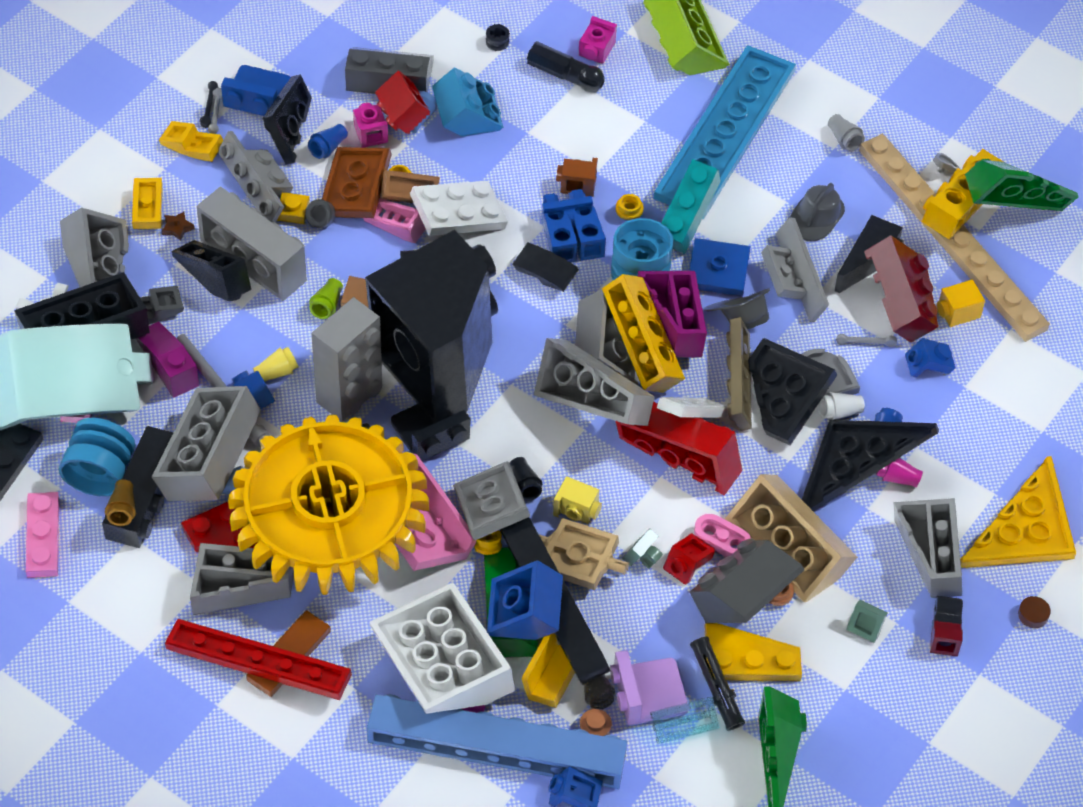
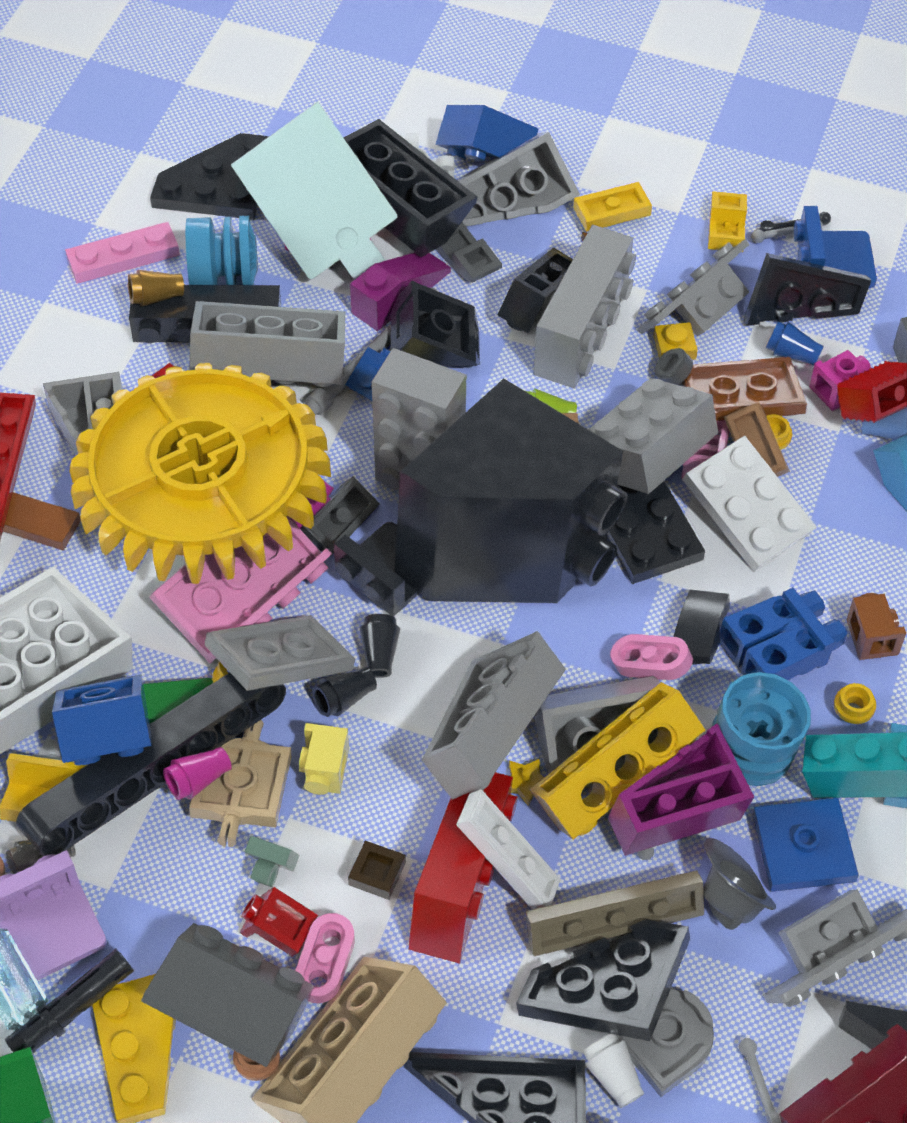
camera: 75 degrees right, 0 degrees up
(46, 256) = (481, 132): none -> blue slope
(227, 343) = (435, 327): none -> black slope
(381, 231) = (657, 431): none -> light grey brick
(493, 448) = (379, 642): none -> black cone
(561, 298) = (655, 655): none -> bright pink plate
(574, 569) = (195, 772): none -> dark pink cone
(668, 493) = (377, 870): none -> dark brown plate

